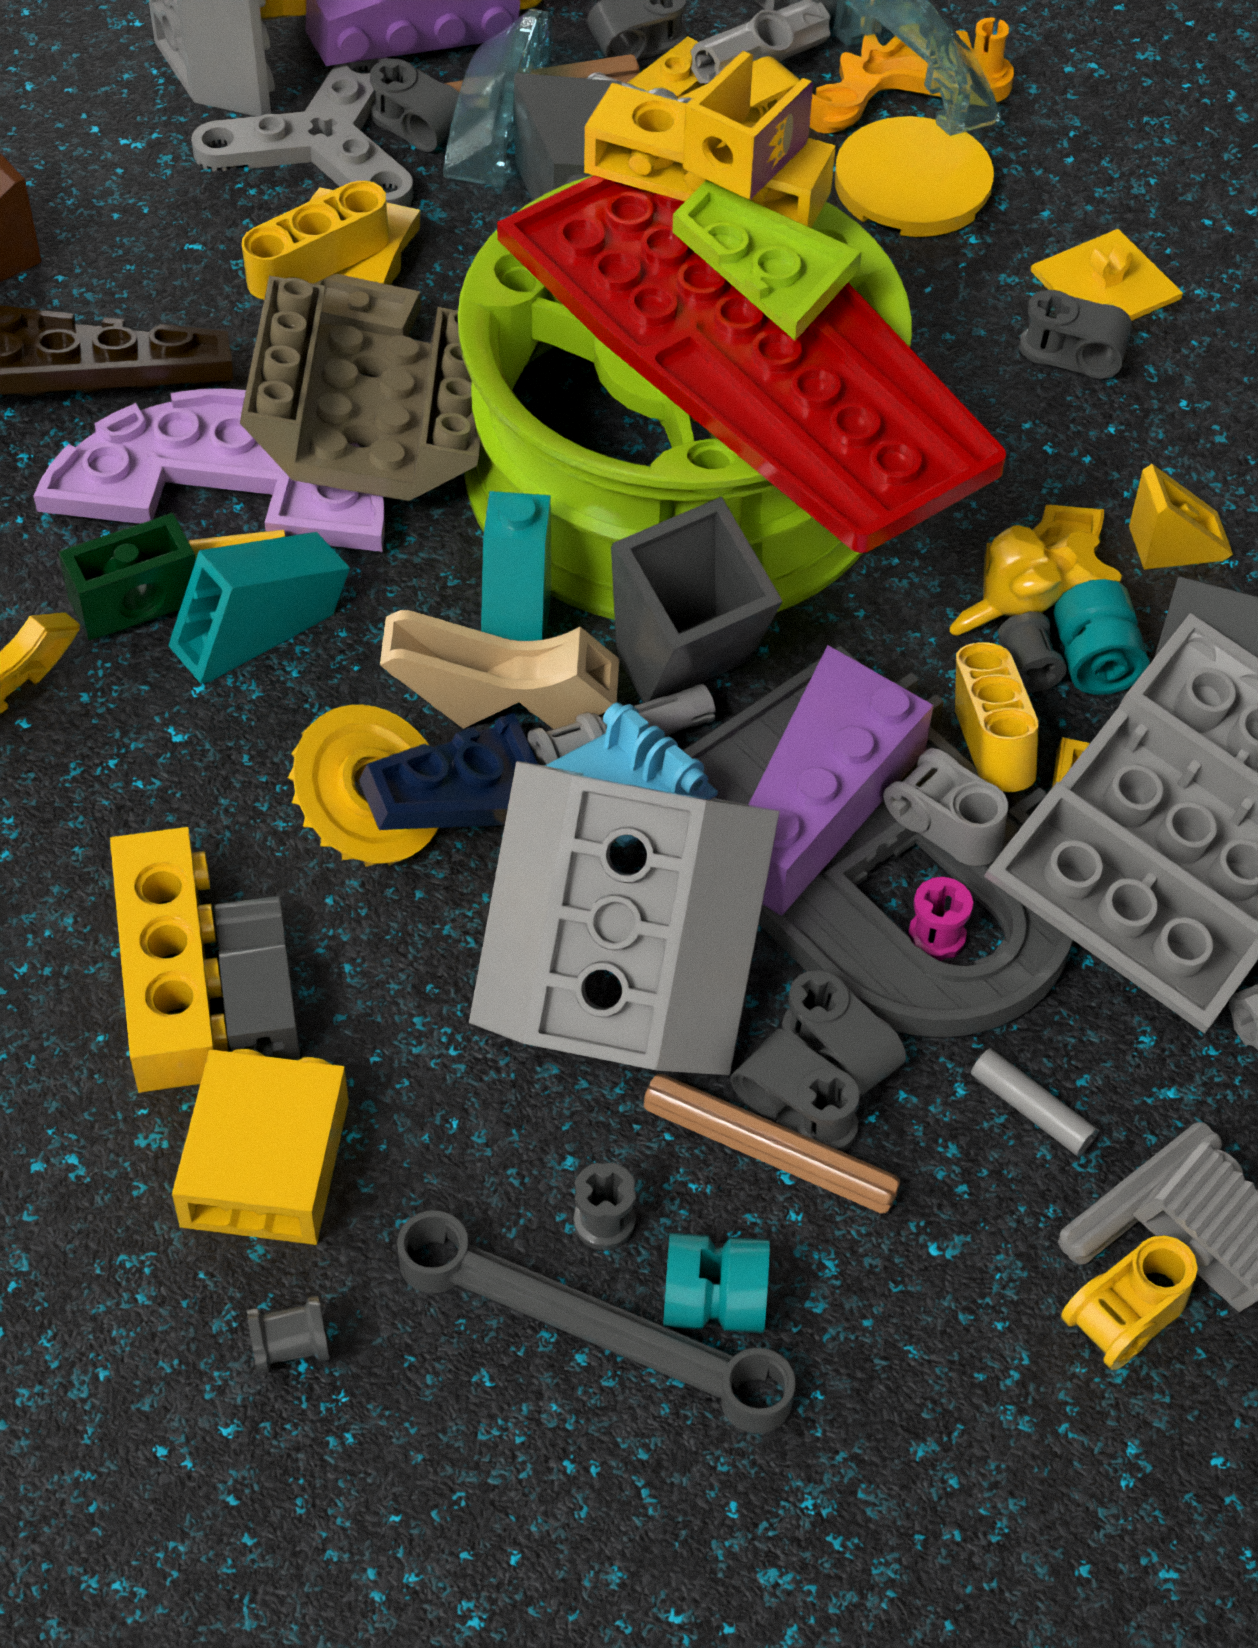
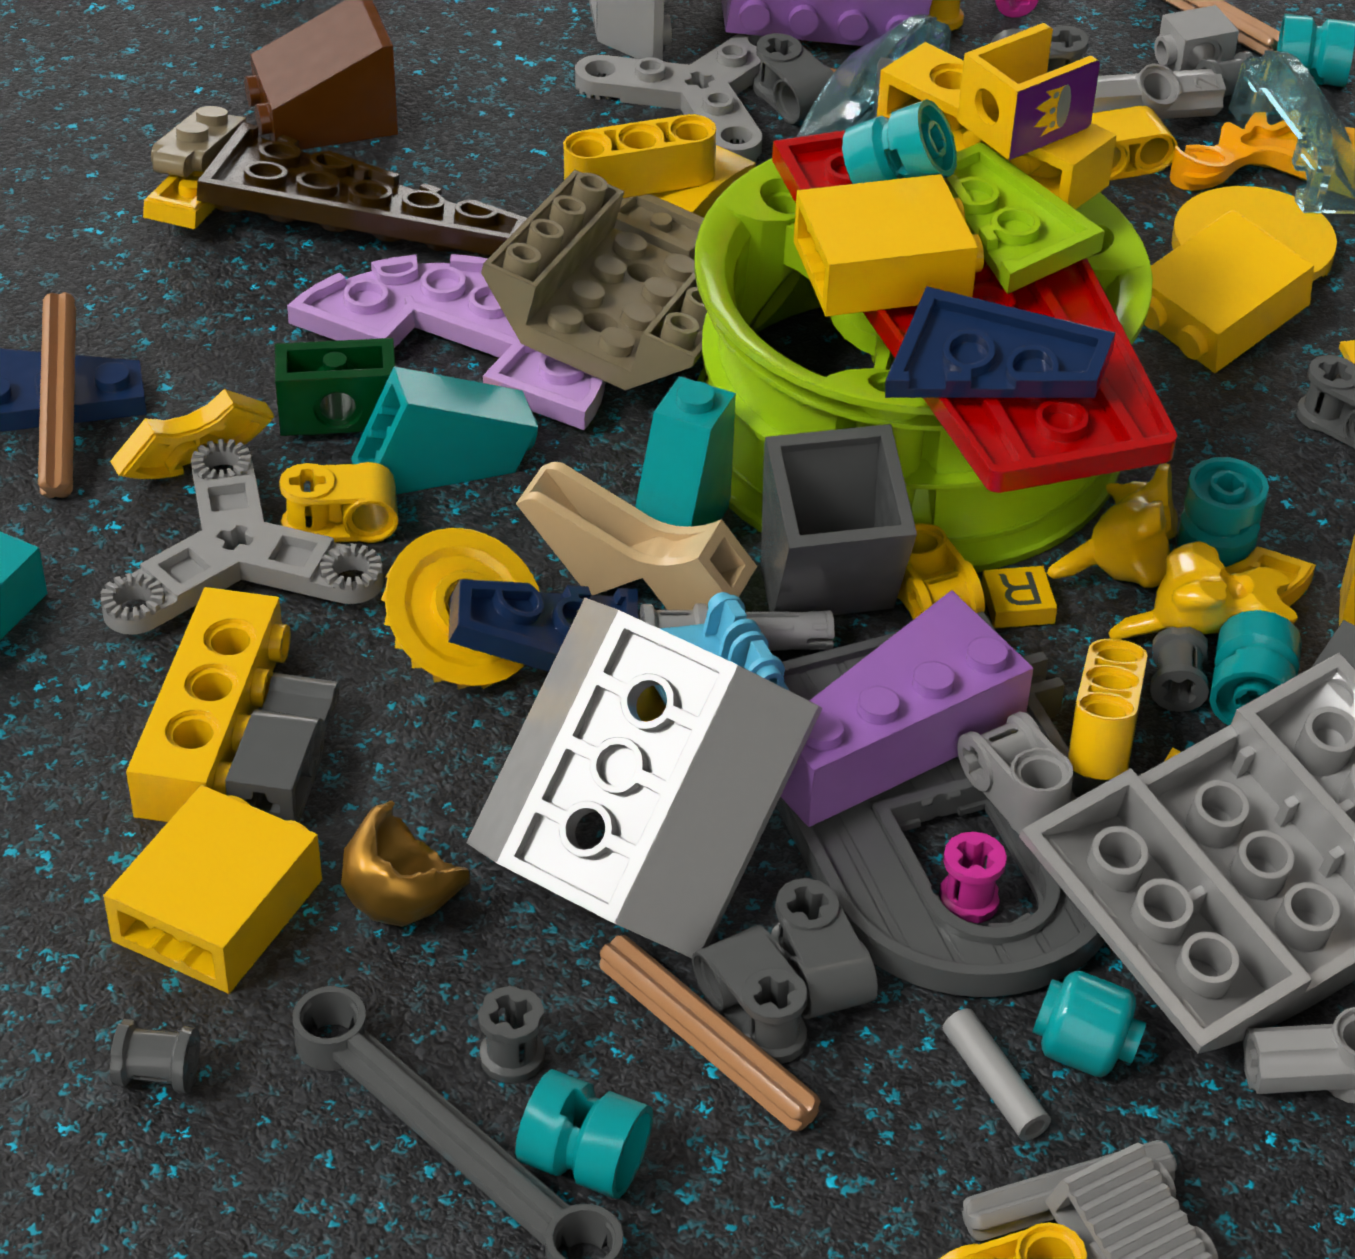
camera: 20 degrees right, 10 degrees down
(146, 778) = (272, 554): none -> light grey piece
(192, 698) = (343, 500): none -> yellow piece
(428, 1080) = (395, 874): none -> pearl gold hair
(647, 212) = (906, 145): none -> teal wheel
(665, 319) = (884, 243): none -> yellow brick
(797, 631) = (936, 570): none -> yellow piece
(816, 410) = (995, 351): none -> dark blue wing
(857, 616) = (1018, 596): none -> yellow tile
(930, 234) = (1227, 290): none -> yellow brick
(937, 545) = (1131, 535): none -> yellow animal
(1020, 491) = (1224, 507): none -> teal wheel
(1098, 1032) = (1088, 1023): none -> teal head

